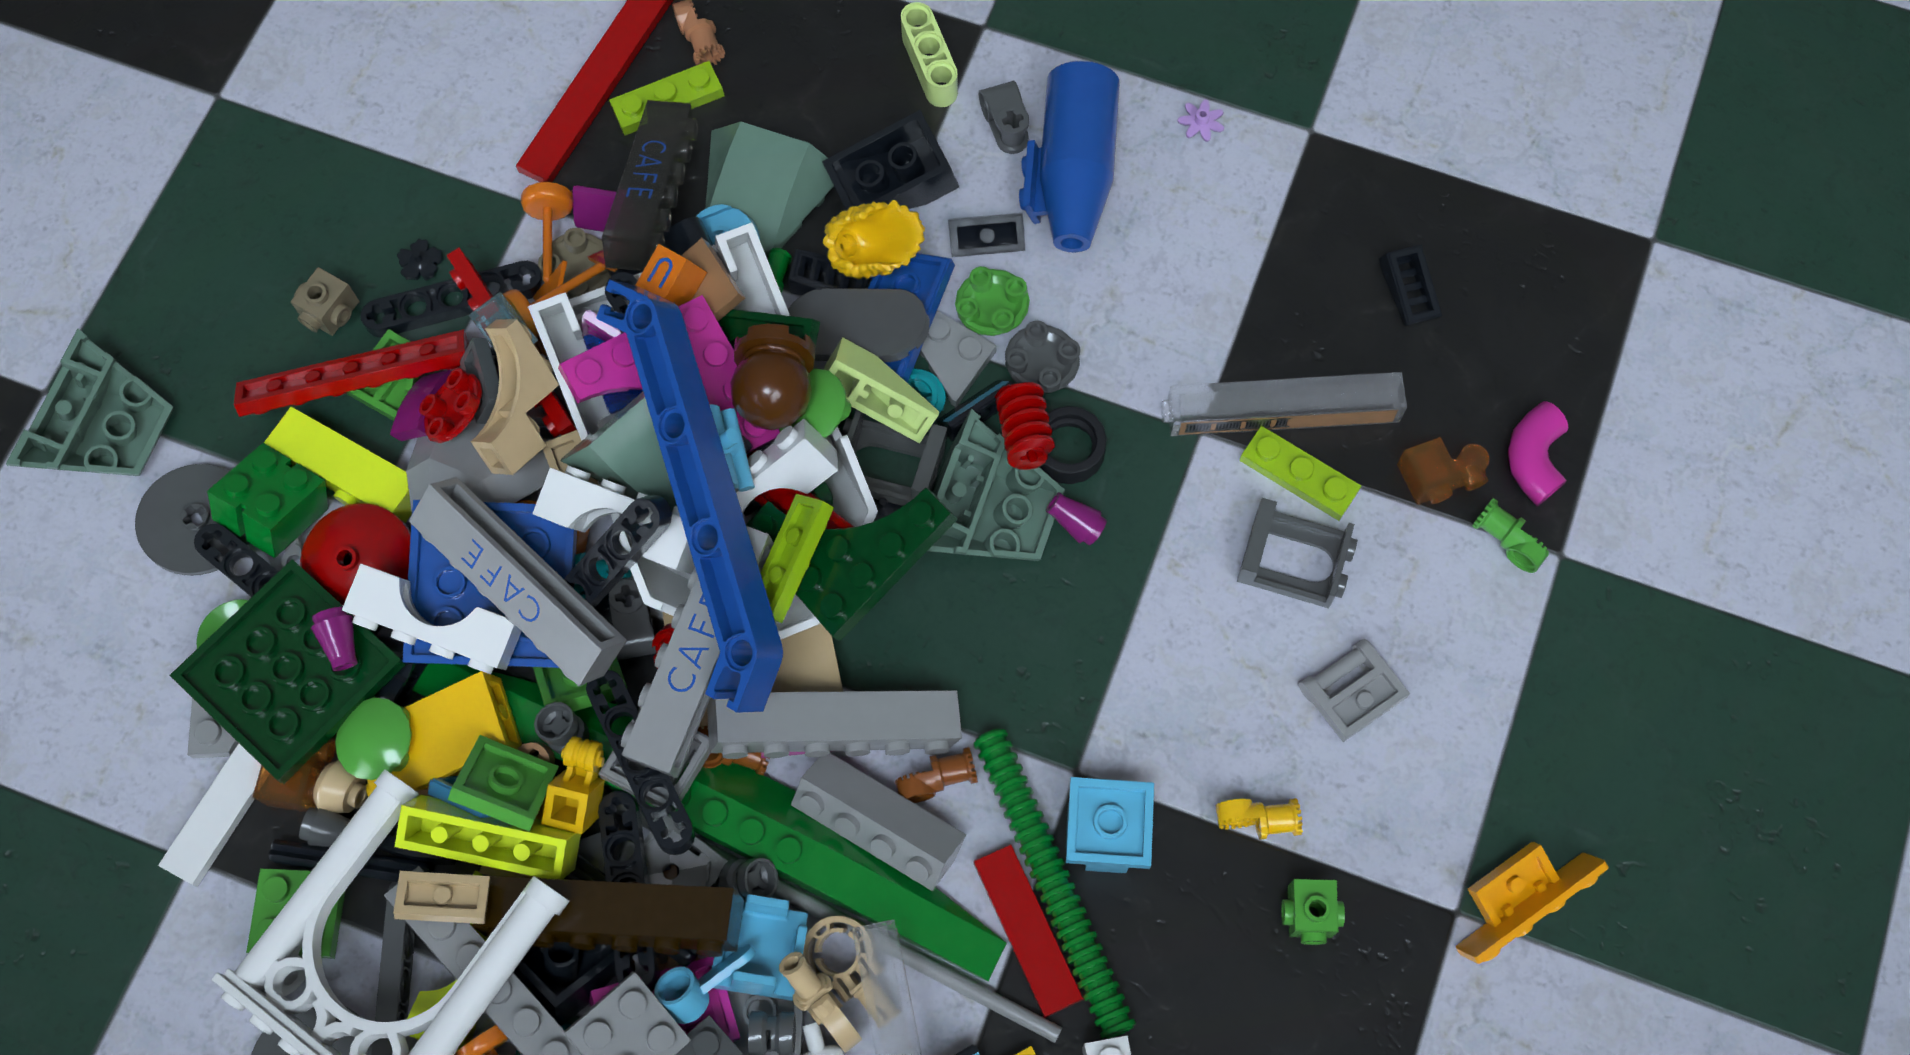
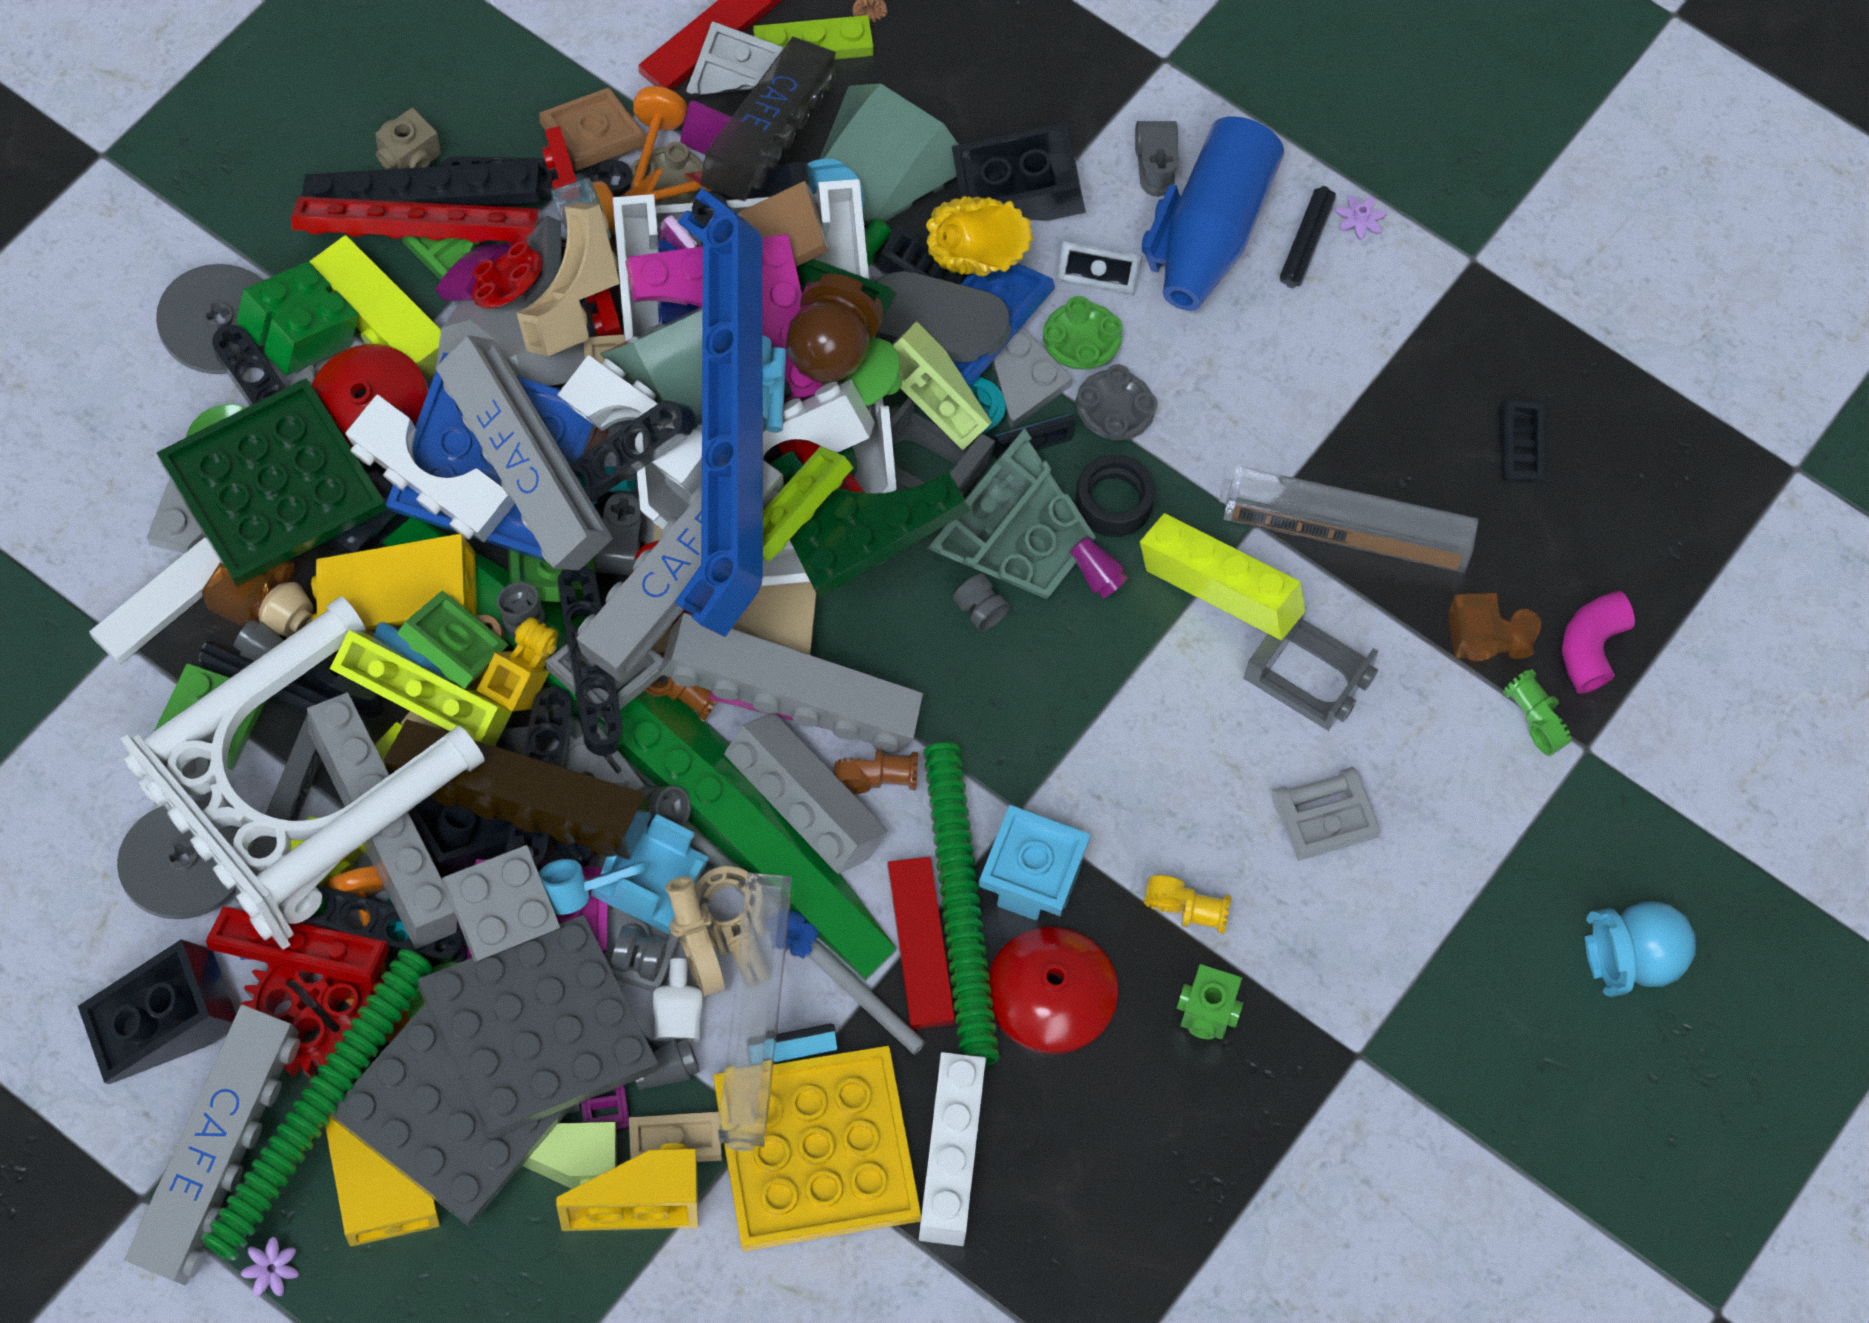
camera: 10 degrees right, 5 degrees down
(93, 417) = (148, 191): sand green wedge -> none
(336, 636) = (329, 459): magenta cone -> none
(359, 334) = (438, 185): none -> black plate
(374, 739) = (335, 568): bright green dish -> none
(419, 261) = (513, 132): black plant -> none
(442, 897) = (364, 722): tan plate -> none
(492, 237) = (594, 128): none -> medium nougat tile
(599, 139) = (730, 61): none -> light grey wing
(671, 276) = (764, 207): orange brick -> none
(916, 961) = (800, 935): none -> blue plant
(929, 40) = (1097, 86): yellowish green beam -> none
(981, 583) = (981, 602): none -> dark grey wheel
(1024, 425) = (1073, 459): red piece -> none
(1158, 967) = (1050, 1015): none -> red dish
(1162, 153) = (1307, 237): none -> black axle
(1194, 495) = (1223, 576): none -> neon yellow brick
(1300, 473) = (1343, 591): lime plate -> none
(1522, 894) = (1427, 1049): light orange bracket -> none
(1678, 735) = (1642, 945): none -> medium azure tile

